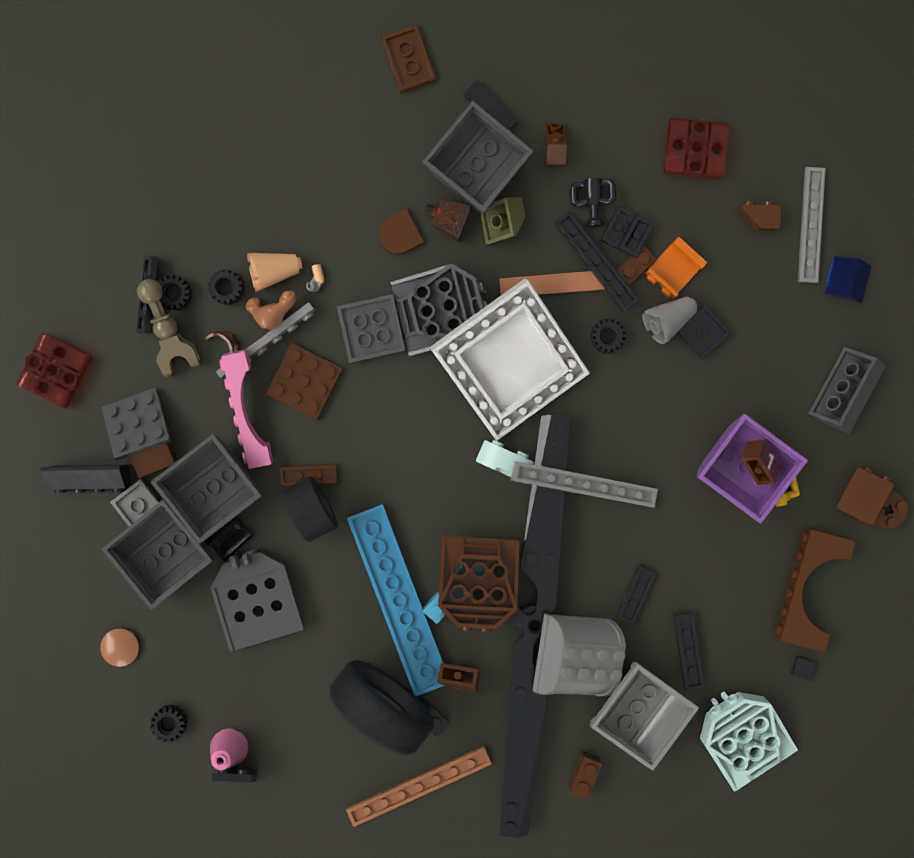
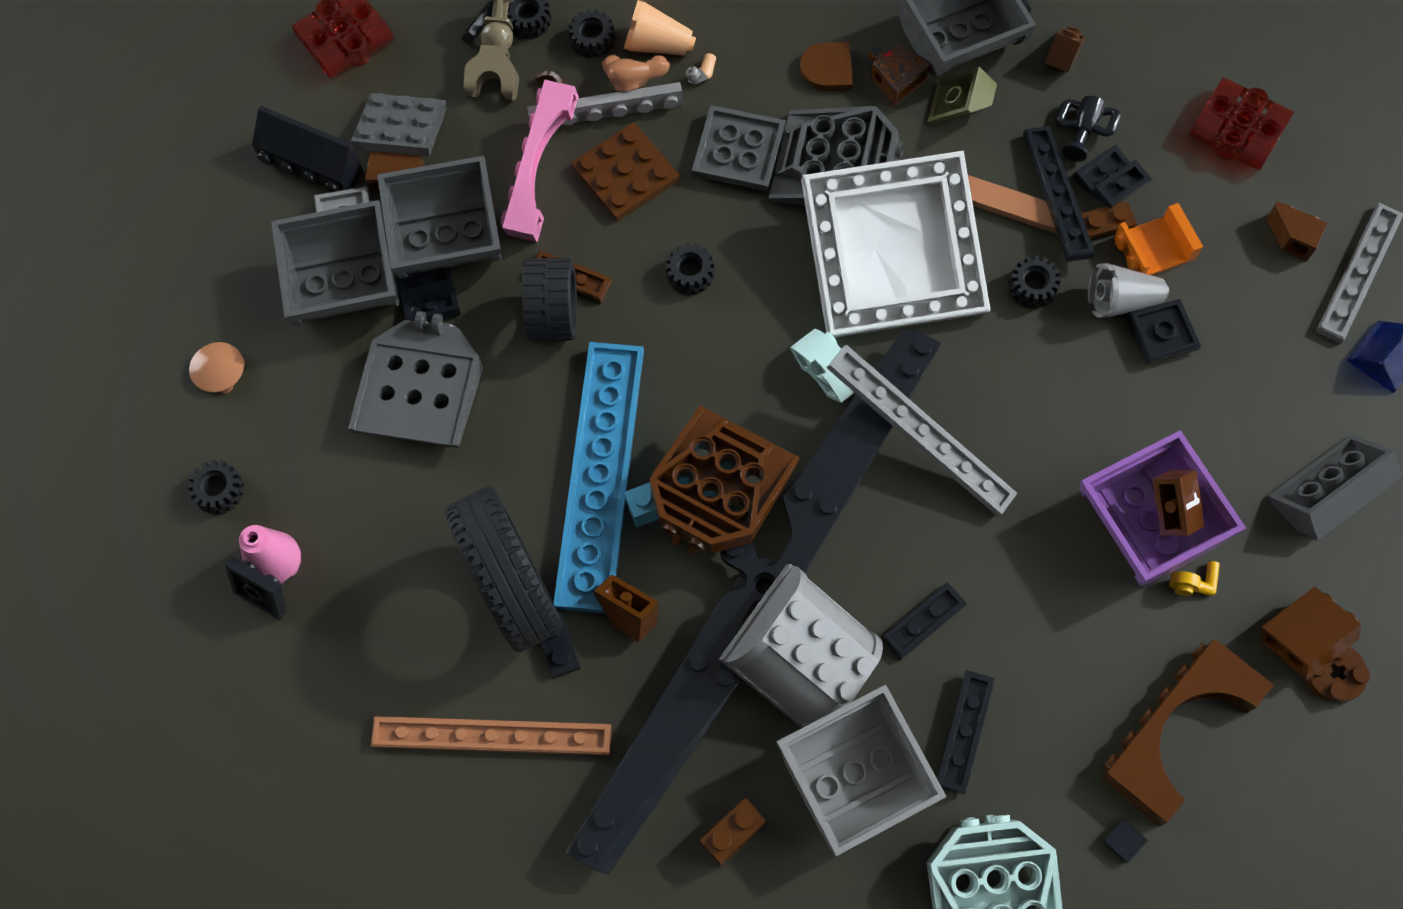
camera: 25 degrees right, 20 degrees down
(371, 433) = (685, 255): none -> black tyre

